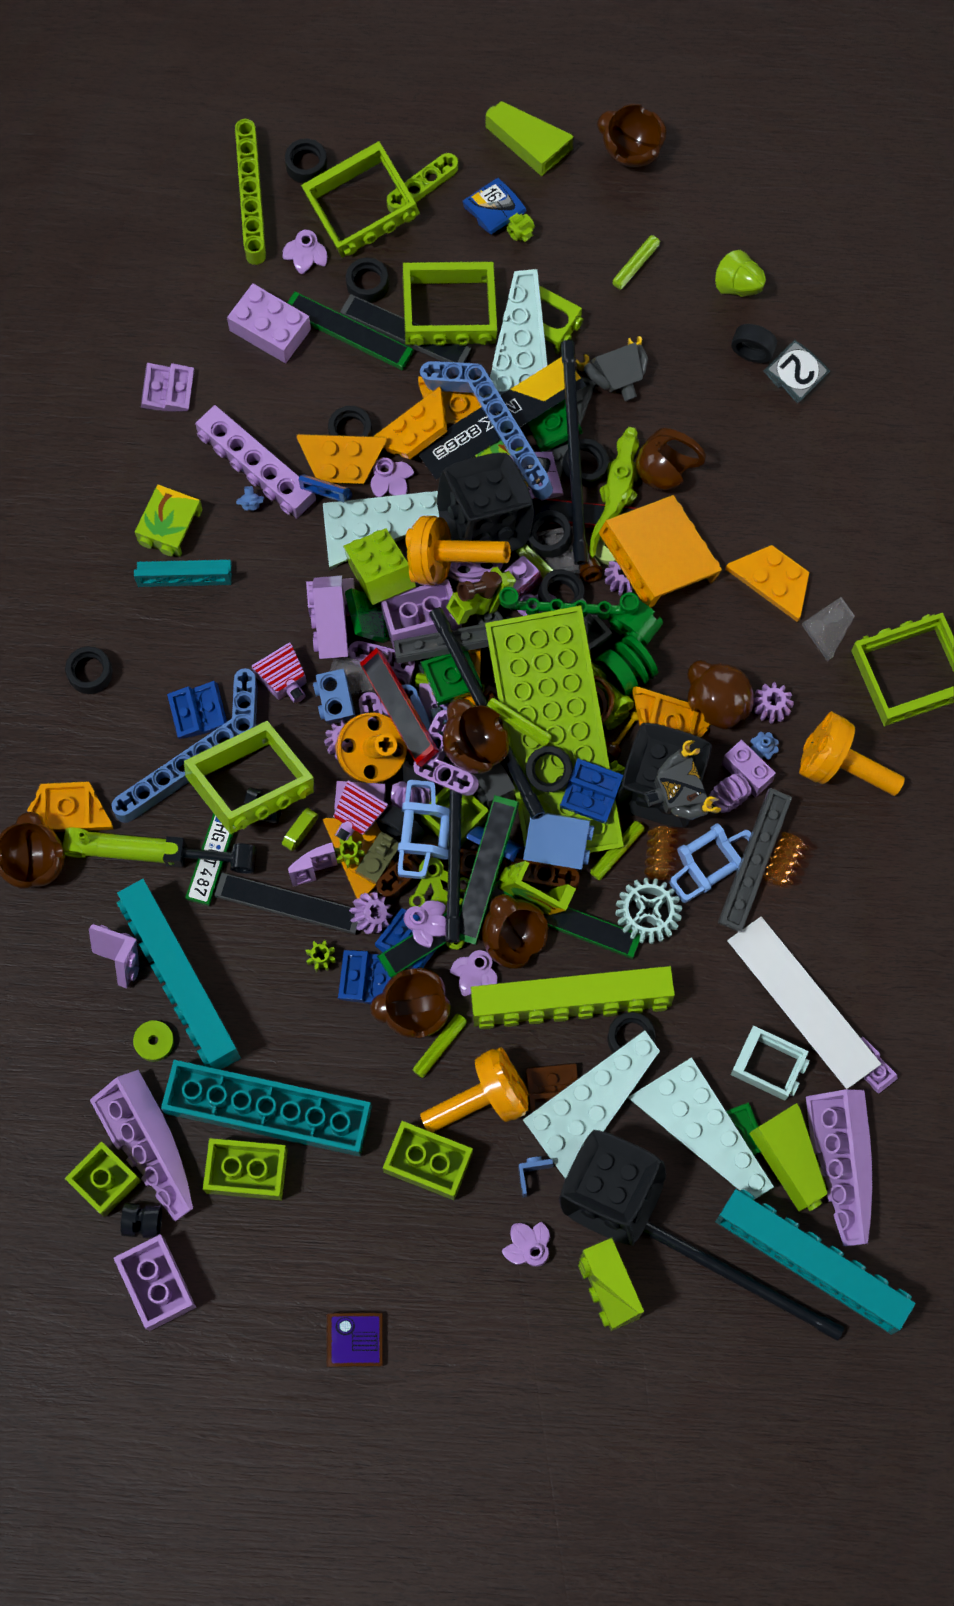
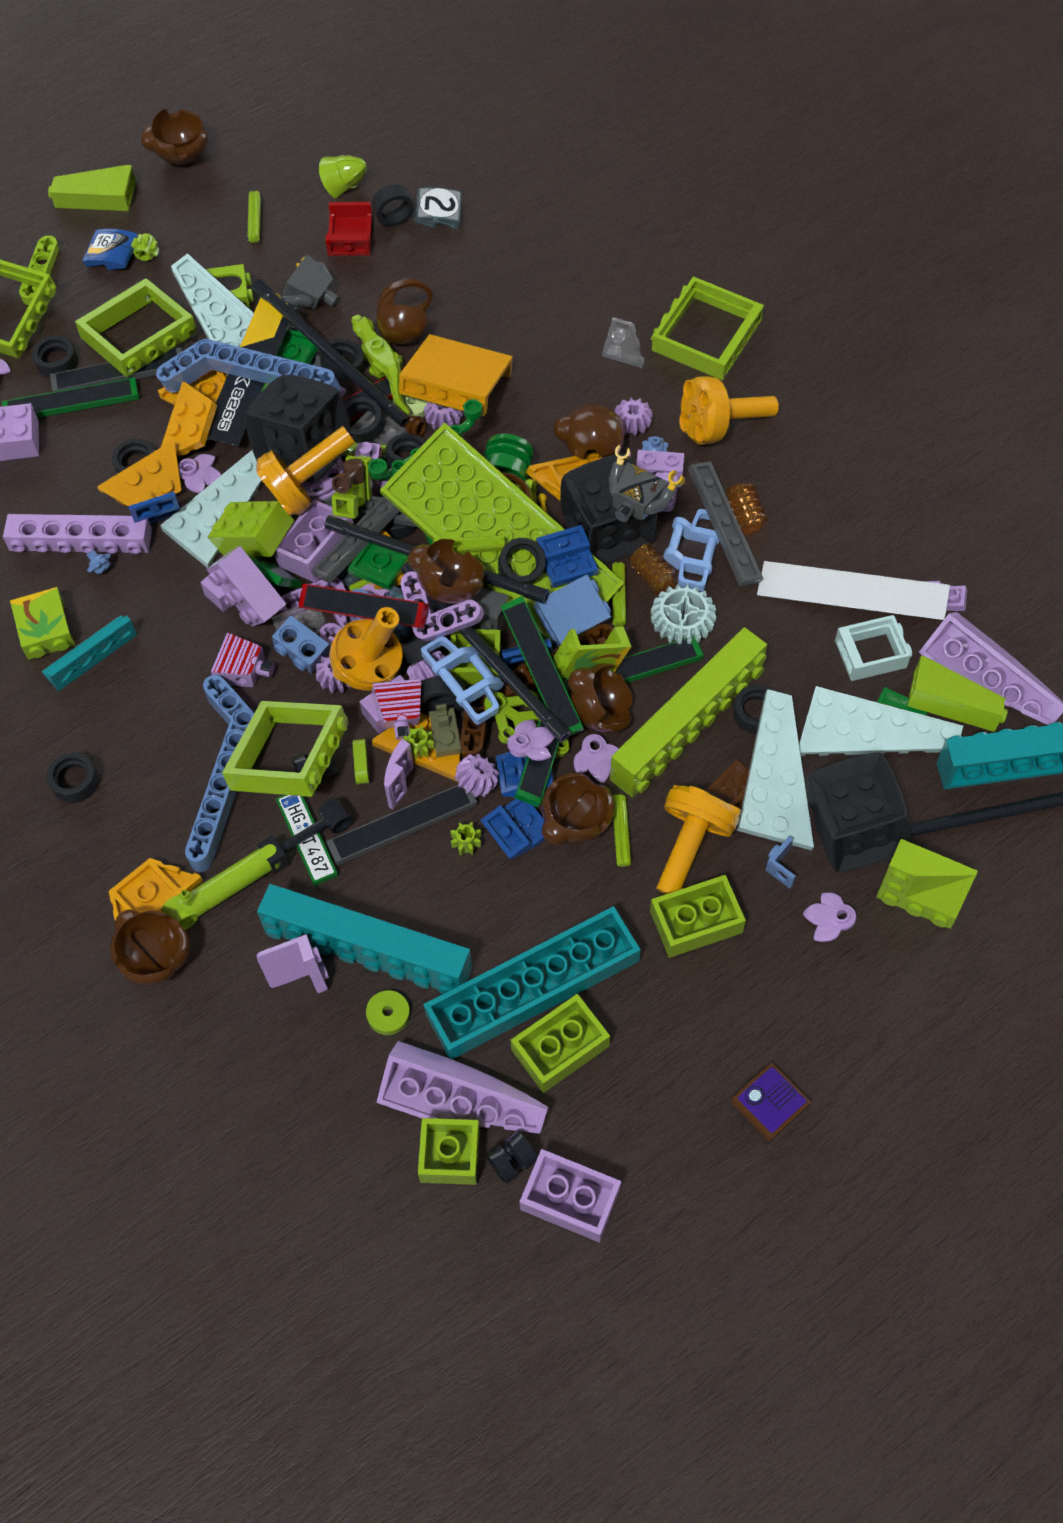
camera: 40 degrees left, 10 degrees down
(197, 710) = (192, 741): blue slope -> none
(638, 624) = (484, 428): green brick -> none
(702, 337) = (349, 229): none -> red panel
(774, 578) = (553, 342): light orange wing -> none

